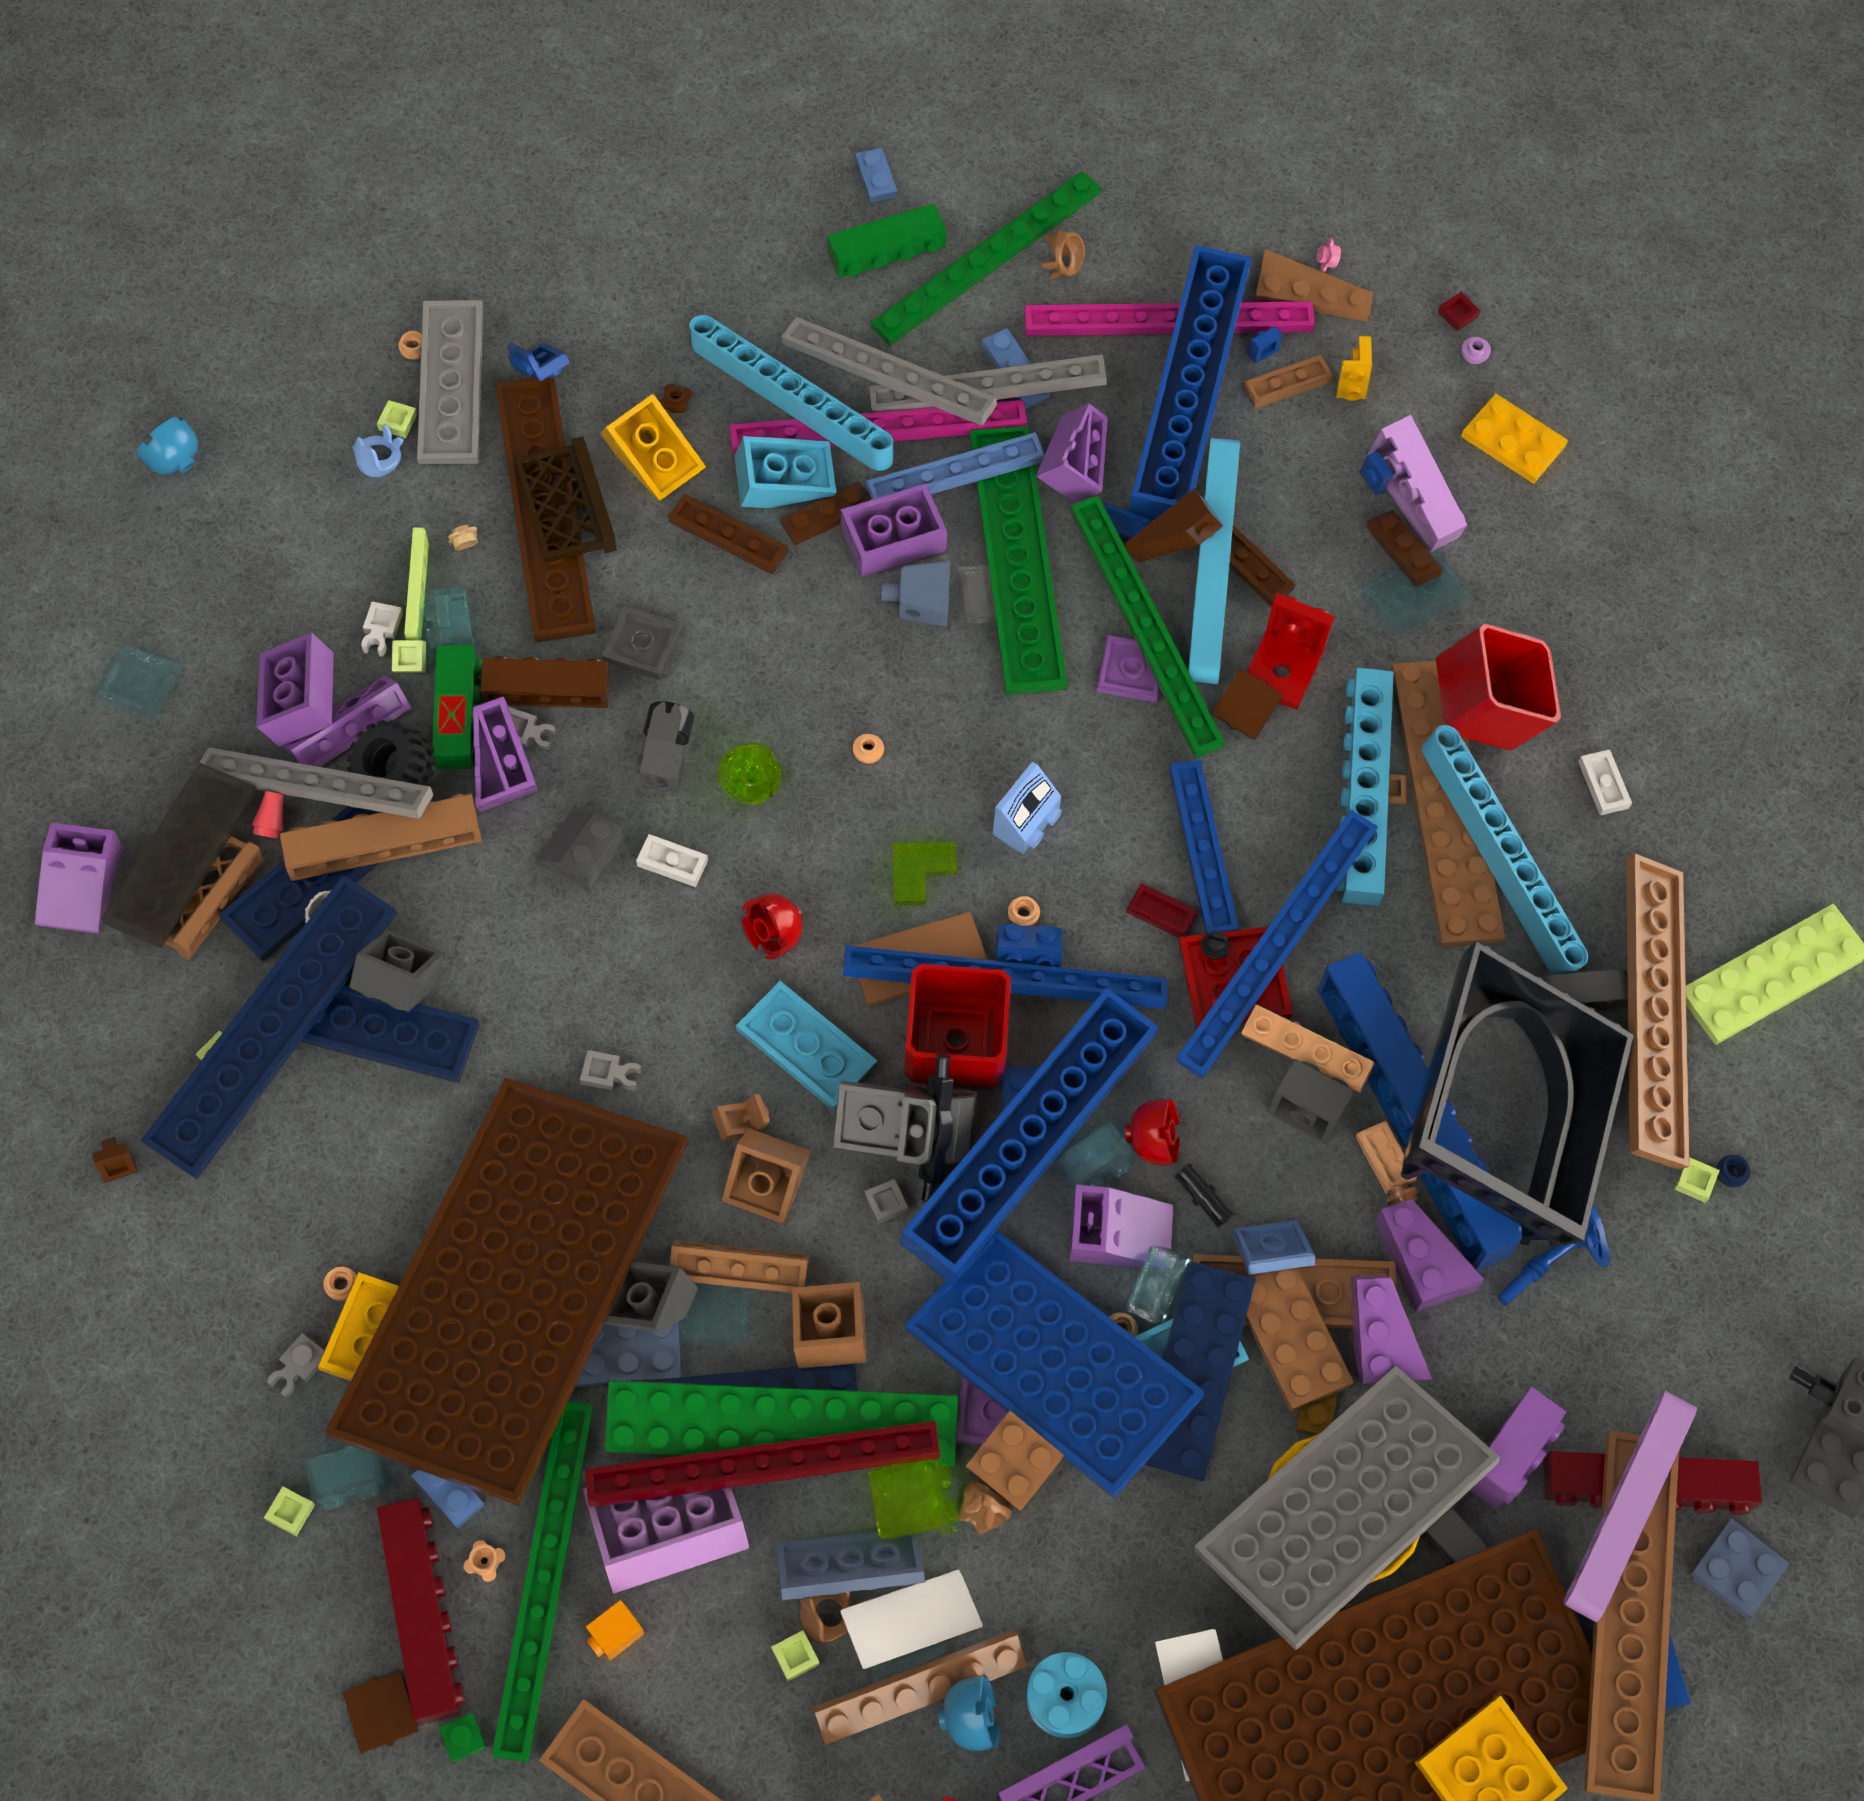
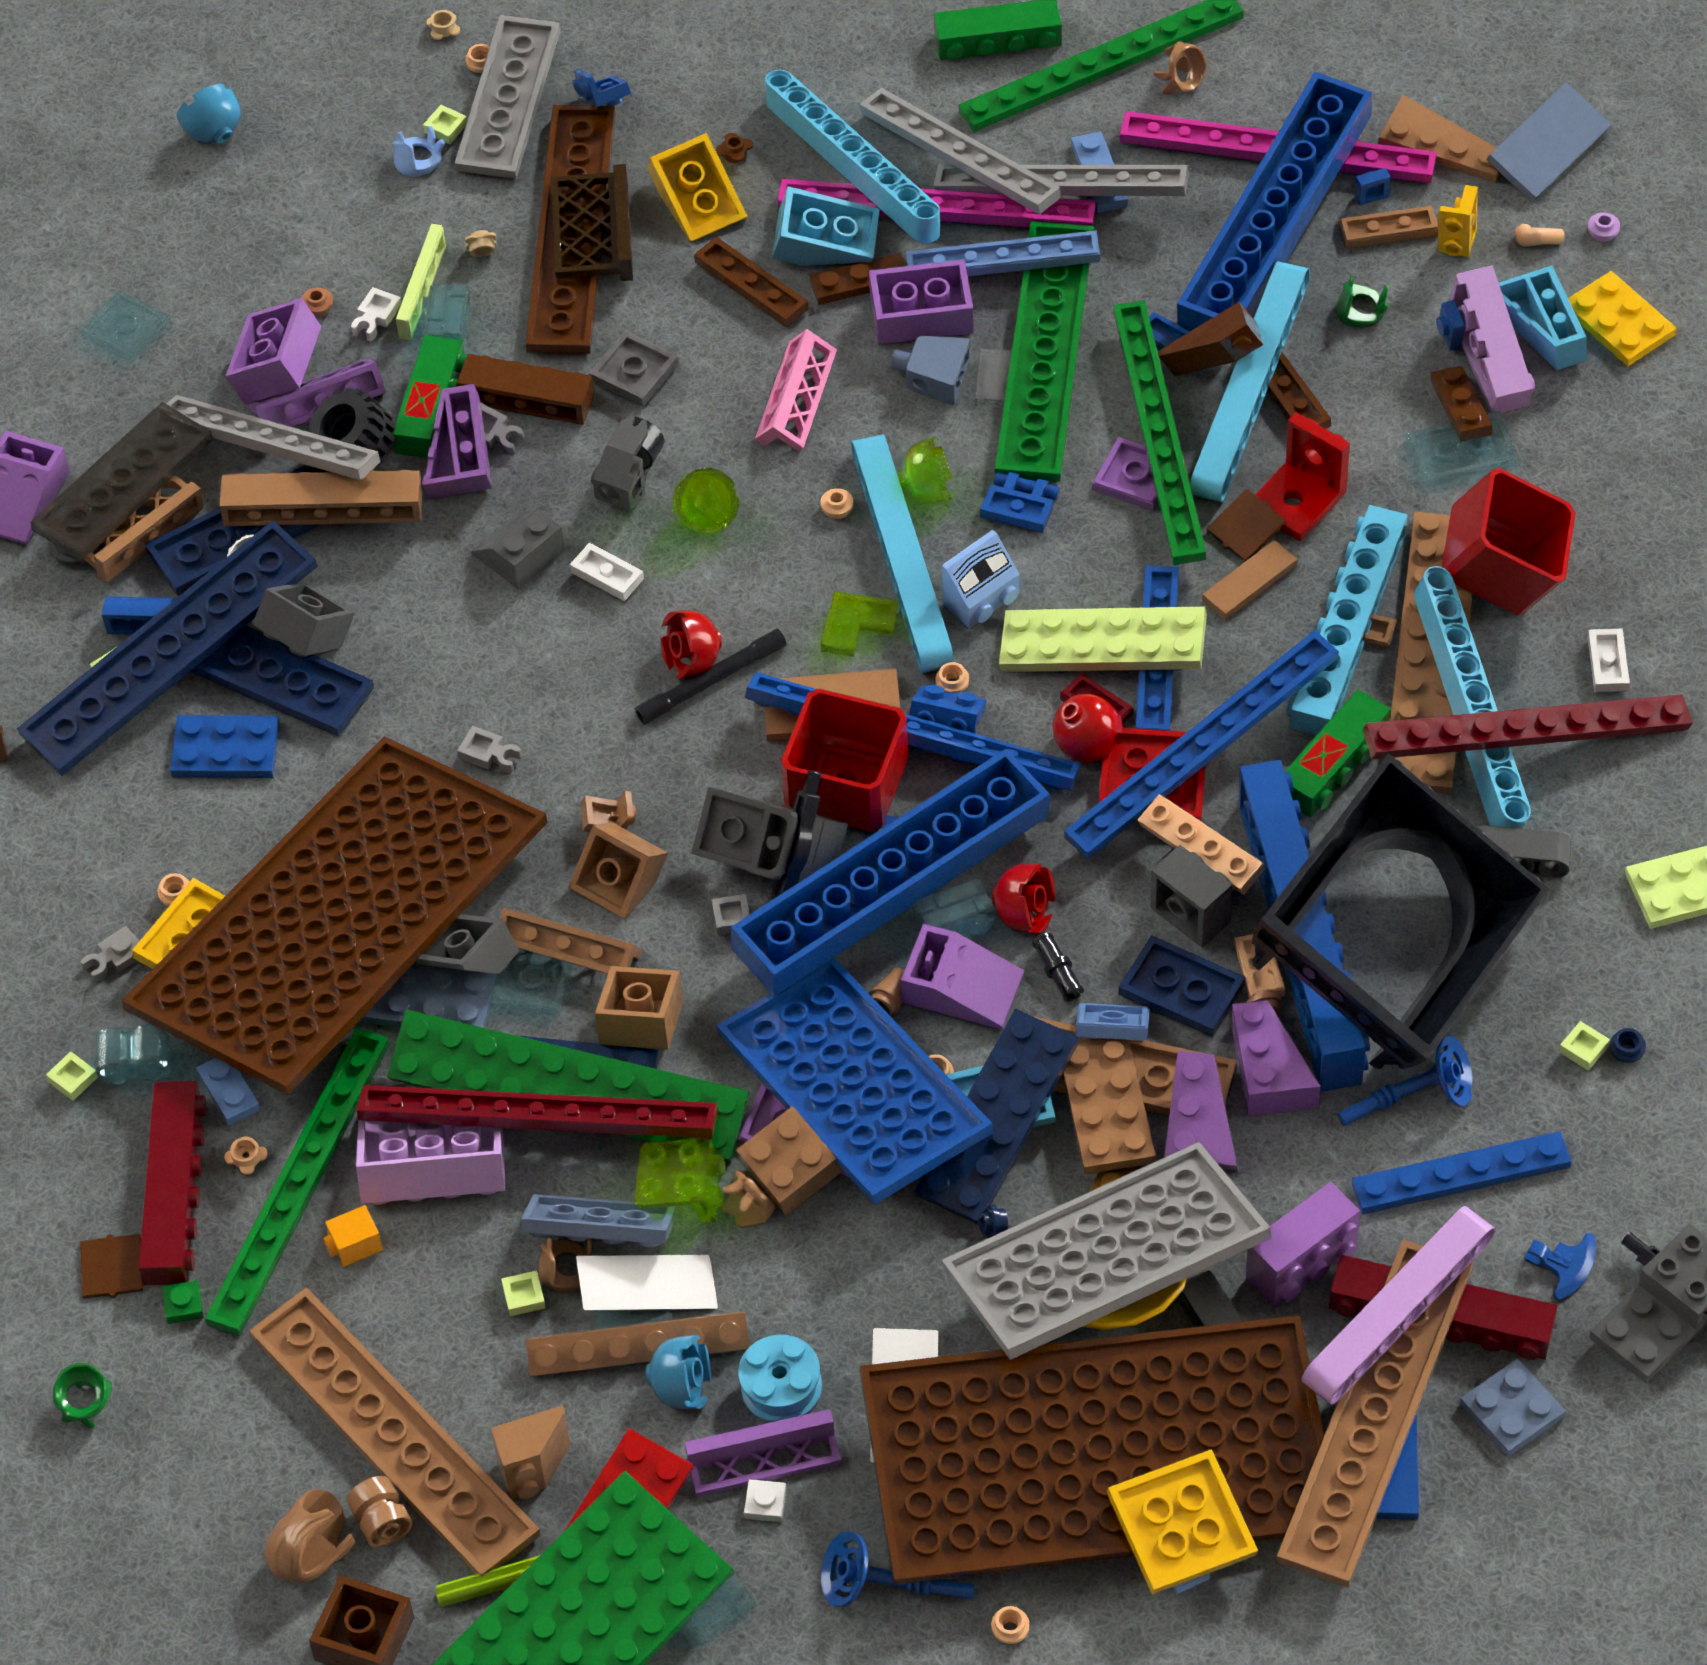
camera: 20 degrees right, 10 degrees down
(226, 989) = (129, 614): none -> blue brick
(269, 816) = (218, 463): coral cone -> none
(323, 630) = (318, 300): none -> nougat plate
(350, 1115) = (224, 746): none -> blue plate
(368, 309) = (443, 24): none -> tan plate
(409, 656) = (396, 343): yellowish green plate -> none
(793, 634) = (790, 378): none -> bright pink fence
(805, 1044) = (689, 755): medium azure plate -> none
(835, 915) = (666, 701): none -> black piece
(944, 791) = (902, 553): none -> medium azure beam
(945, 705) = (926, 472): none -> clear neon green cylinder
(1036, 724) = (1019, 508): none -> blue plate
(1057, 1253) = (888, 992): none -> medium nougat cone
(1076, 454) = (1134, 259): medium lavender wedge -> none
(1153, 847) = (1103, 639): none -> yellowish green plate
(1157, 1284) = (978, 1029): clear light blue brick -> none
(1165, 943) = (1086, 727): none -> red cylinder
(1215, 945) = (1138, 737): black piece -> none
(1219, 1481) = (993, 1221): none -> dark blue plate
(1264, 758) = (1249, 580): none -> medium nougat tile
(1274, 462) = (1349, 315): none -> green piece
(1322, 1192) = (1181, 985): none -> dark blue plate
(1328, 255) = (1469, 110): bright pink plate -> none
(1394, 919) = (1334, 753): none -> green brick
(1406, 276) = (1549, 142): none -> sand blue tile
(1416, 371) = (1530, 236): none -> light nougat arm
(1458, 311) = (1596, 185): dark red plate -> none
(1460, 451) = (1545, 317): none -> medium azure wedge
(1560, 871) = (1527, 726): none -> dark red plate
(1623, 1333) = (1461, 1172): none -> blue plate
(1657, 1013) = (1588, 879): medium nougat plate -> none
(1744, 1405) = (1567, 1262): none -> blue piece

